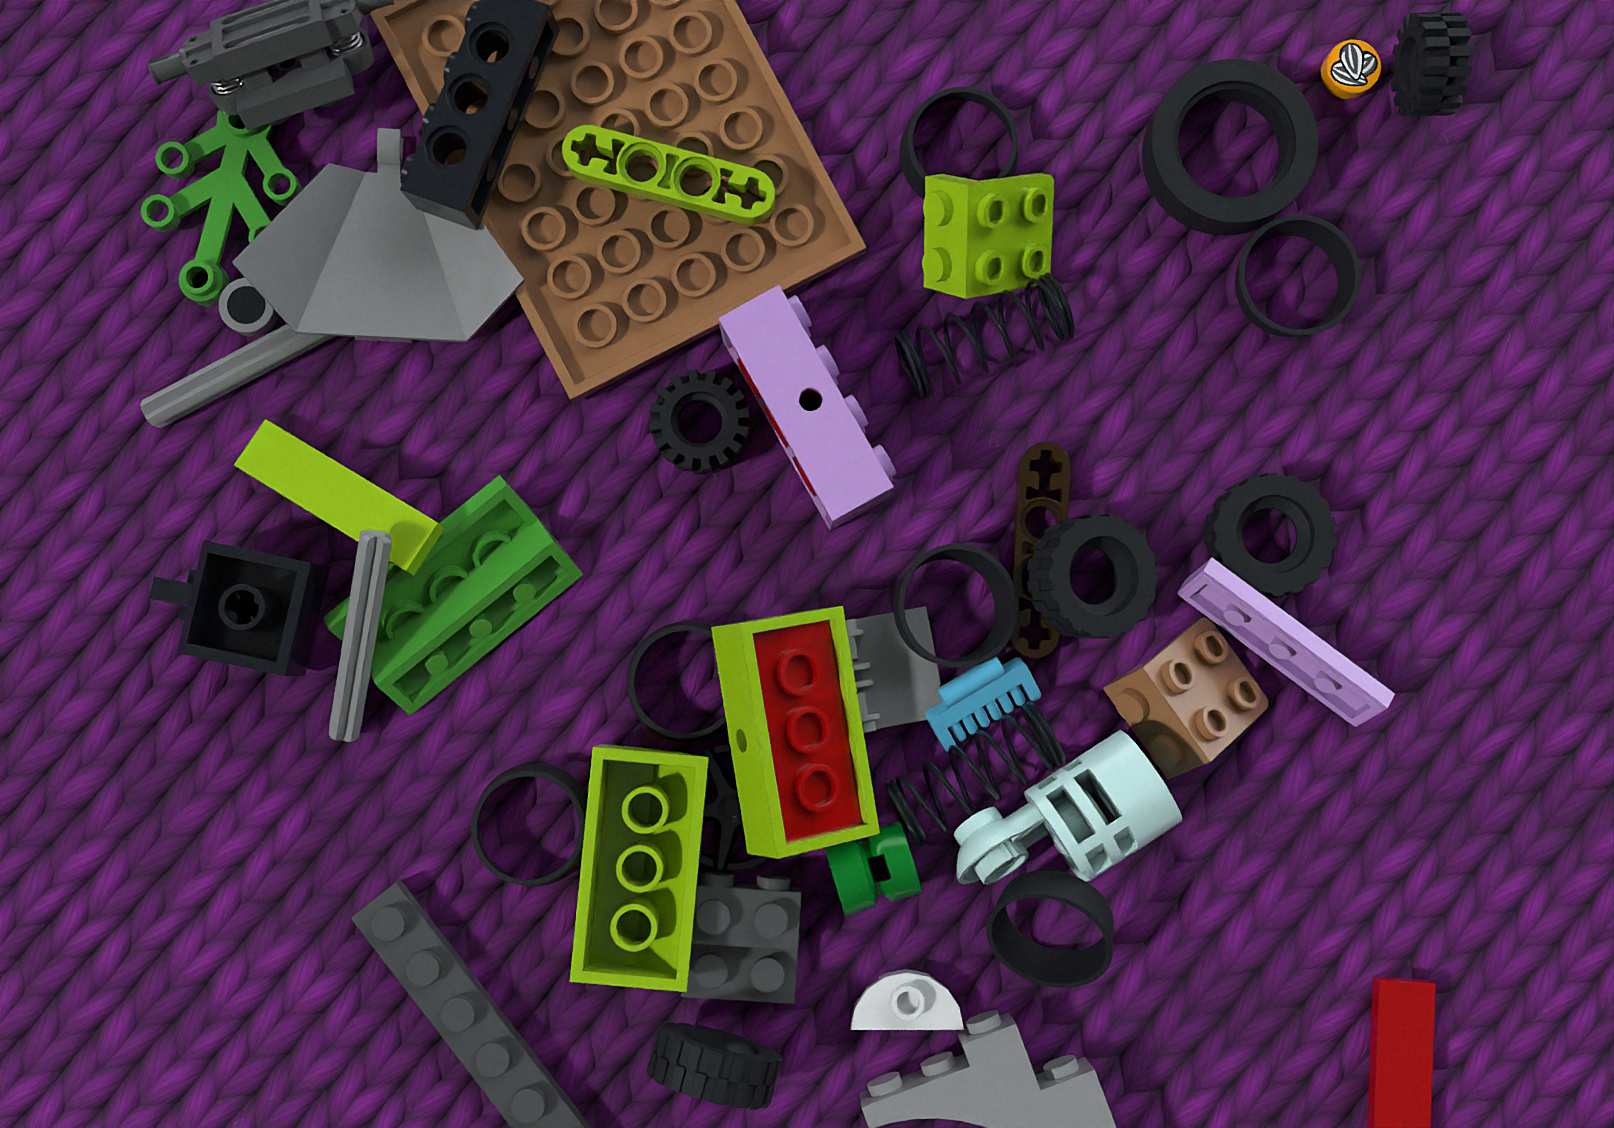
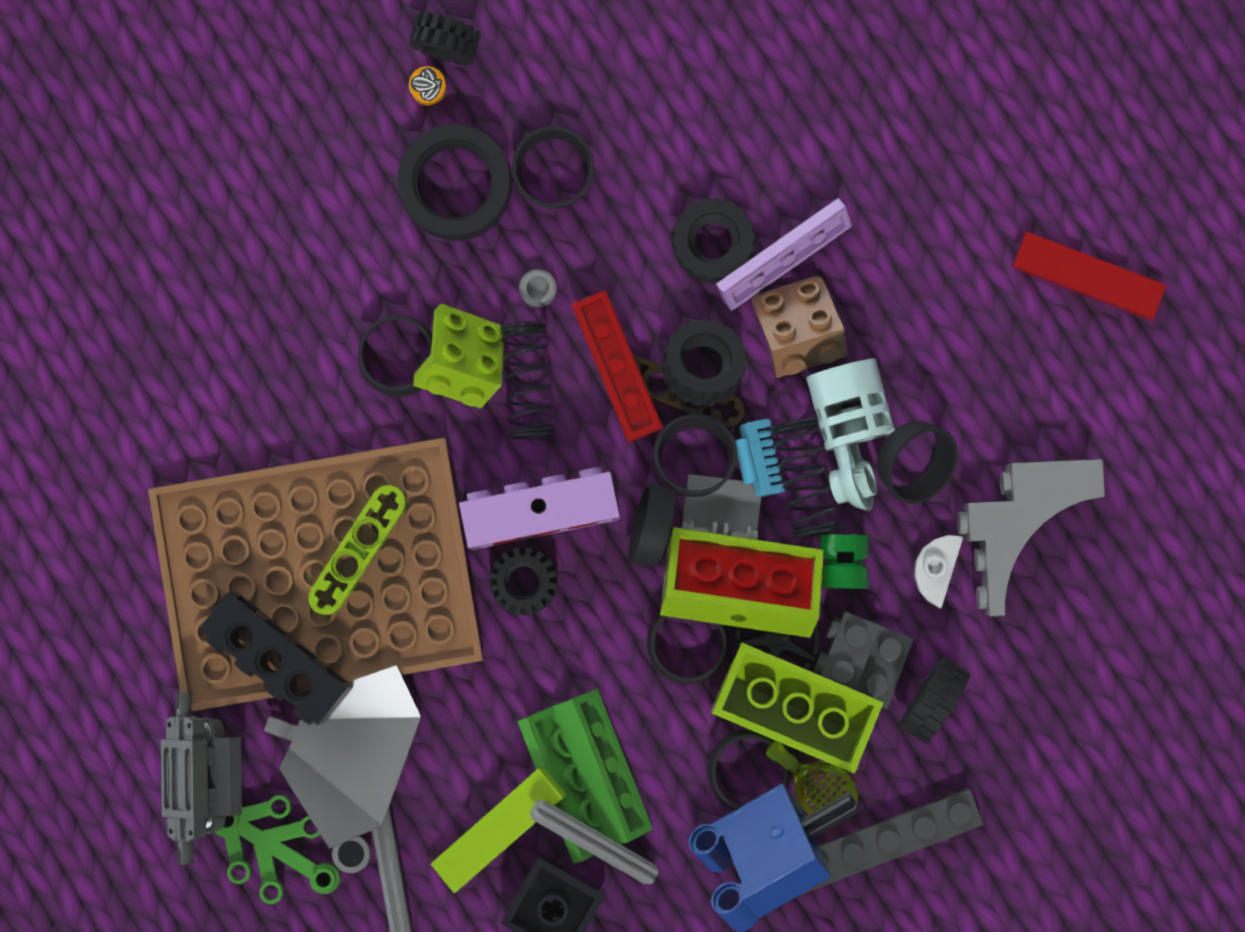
camera: 65 degrees left, 0 degrees up
(417, 895) = (771, 853): none -> blue piece
(567, 858) = (777, 752): none -> clear neon green piece
(836, 575) = (651, 525): none -> black tyre
(1046, 454) = (616, 366): none -> red tile
(1118, 312) = (538, 288): none -> light grey tile

